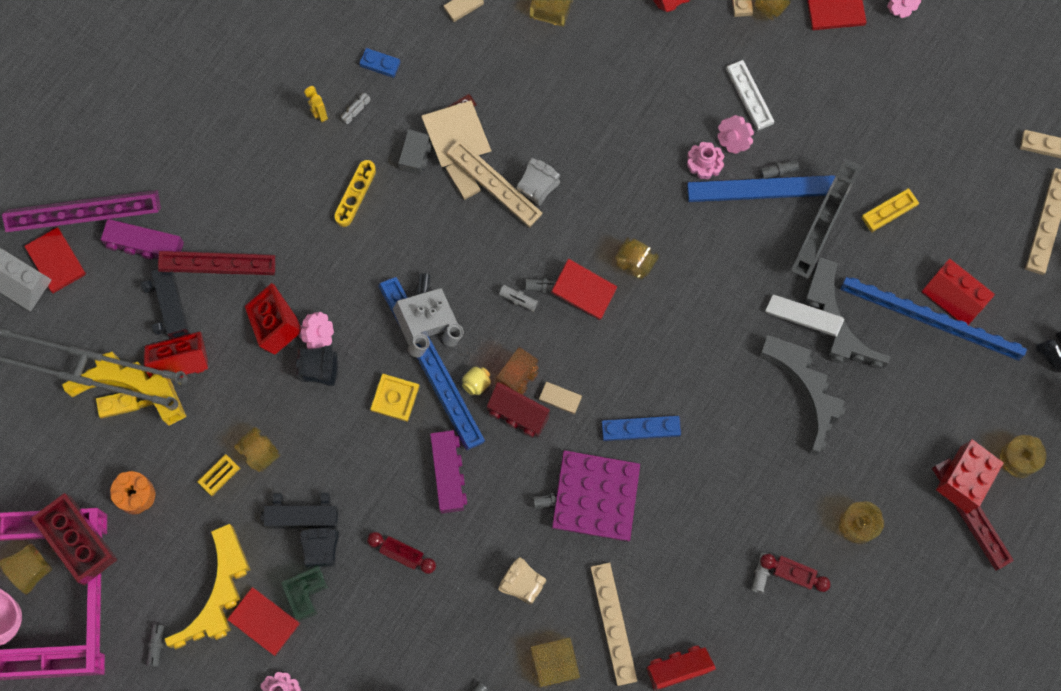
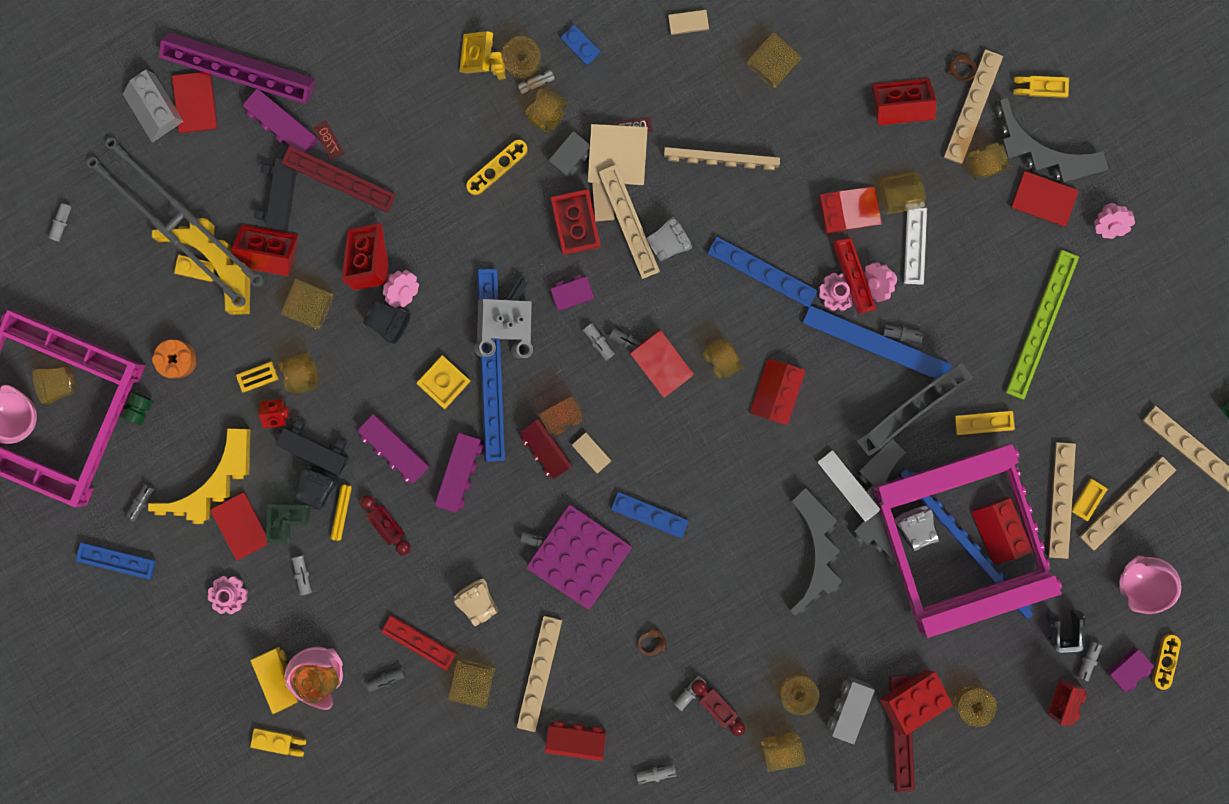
camera: 25 degrees right, 15 degrees up
(74, 539) = (103, 386): dark red brick -> none
(119, 549) = (136, 408): none -> dark green wheel
(193, 239) = (328, 140): none -> clear red sticker
(237, 385) = (307, 304): none -> clear yellow brick
(248, 498) = (273, 413): none -> red brick
(291, 104) = (476, 52): none -> yellow plate
(340, 83) = (529, 65): none -> clear yellow brick
(343, 639) = (301, 575): none -> light grey pin
(354, 563) = (340, 513): none -> yellow axle
(376, 123) = (546, 110): none -> clear yellow brick
(376, 478) = (393, 448): none -> magenta brick
(448, 204) = (575, 222): none -> red brick
(474, 266) = (572, 293): none -> magenta brick
(476, 381) = (523, 402): light yellow head -> none
(485, 650) = (418, 642): none -> red tile
(541, 99) = (729, 159): none -> tan plate
(631, 175) = (762, 272): none -> blue plate
(677, 91) = (849, 210): none -> red slope
(698, 266) = (777, 391): none -> red slope
(712, 138) = (854, 275): none -> red tile
(712, 542) = (653, 633): none -> reddish brown piece
(717, 55) = (902, 192): none -> clear yellow slope
(771, 665) = (656, 774): none -> light grey pin
(877, 583) = (783, 752): none -> clear yellow brick
(884, 323) = (917, 527): none -> light grey piece
(892, 110) = (1042, 324): none -> lime tile
(892, 258) = (982, 602): none -> dark pink door
(915, 512) = (850, 709): none -> light grey brick
(992, 245) = (1061, 500): none -> tan plate
(1015, 233) = (1088, 499): none -> yellow tile

